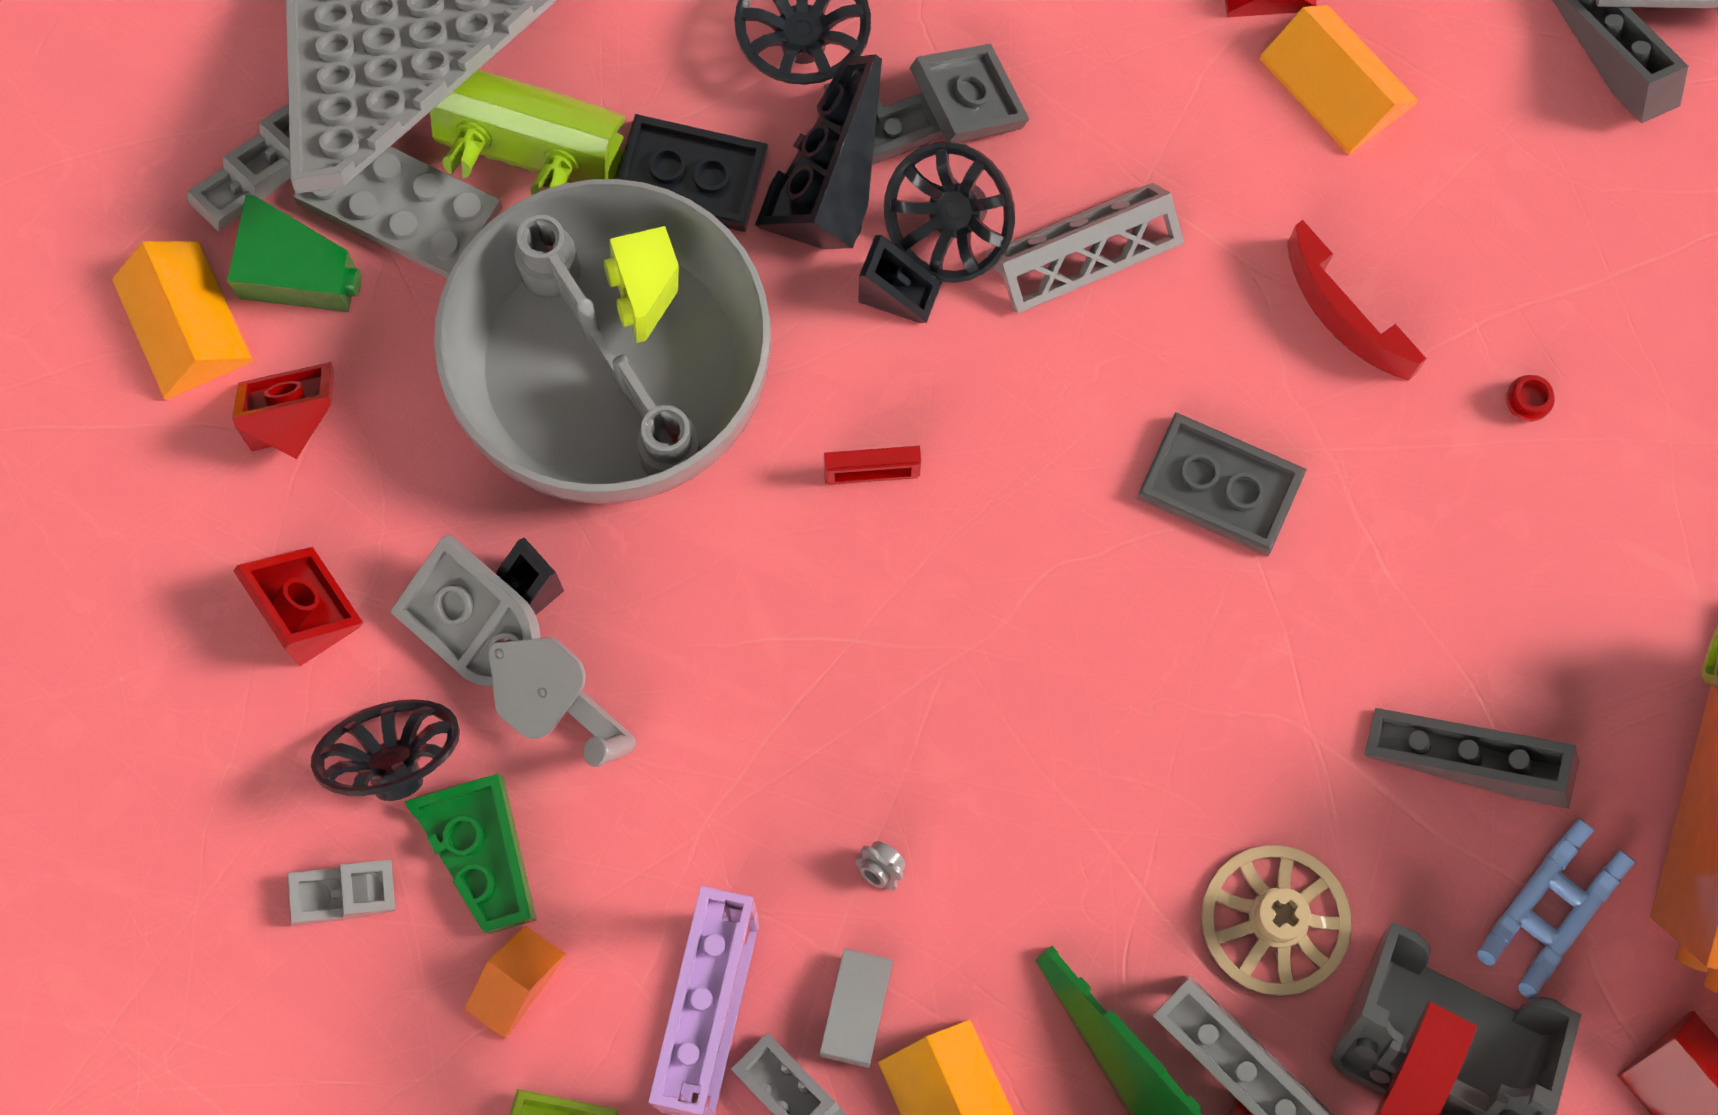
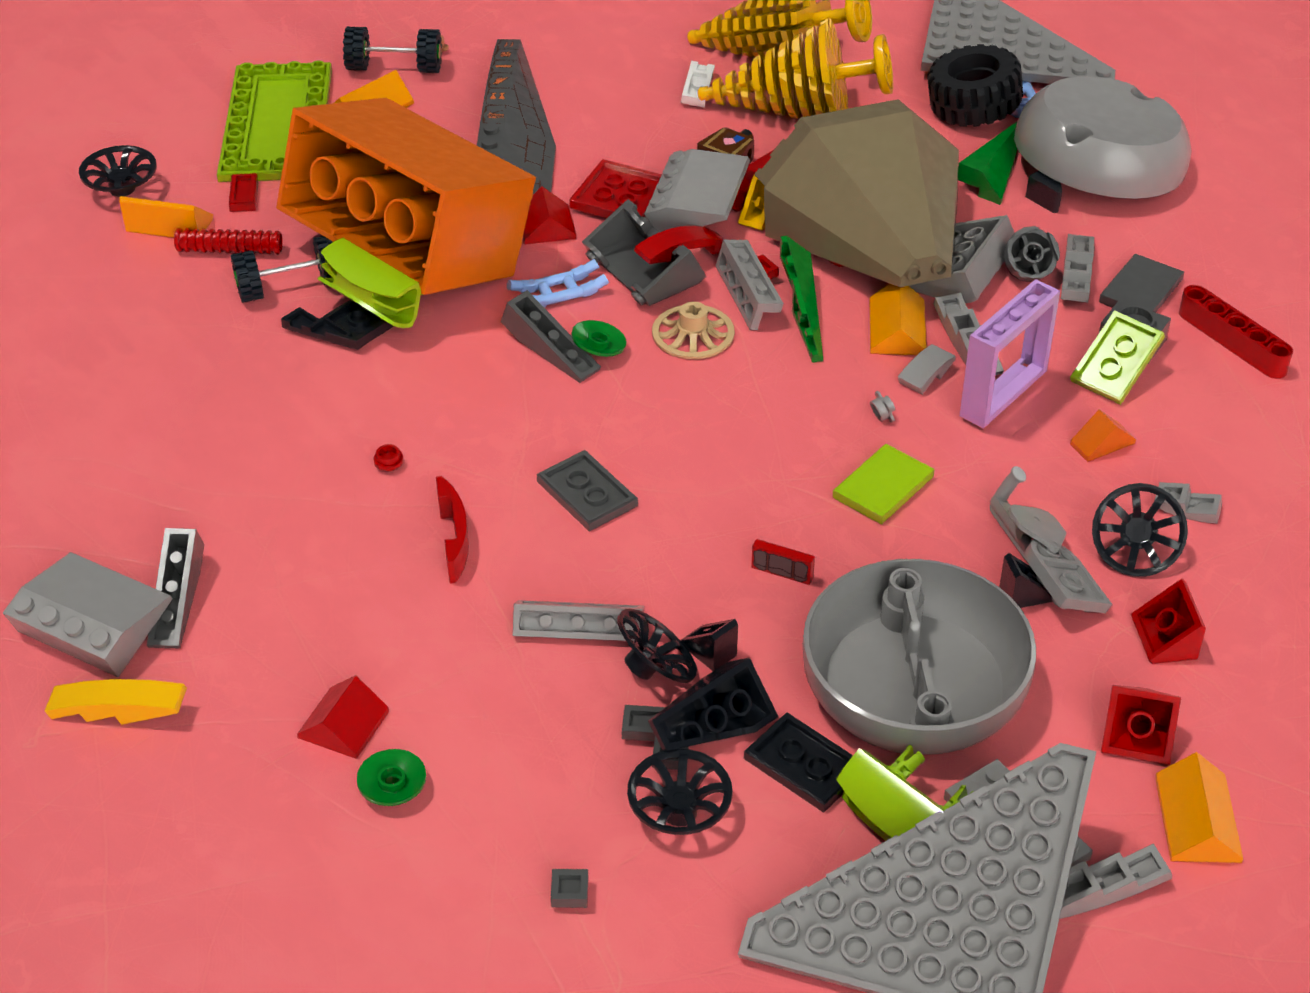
camera: 150 degrees left, 30 degrees down
(289, 262) = (1117, 811): green slope -> none
(480, 847) = (1097, 479): green wing -> none
(646, 277) = (873, 672): neon yellow slope -> none
(808, 708) = (883, 483): none -> lime tile
(969, 93) = (594, 715): dark grey plate -> none
(1336, 77) = (351, 640): light orange slope -> none
(1428, 790) = (598, 338): none -> green dish

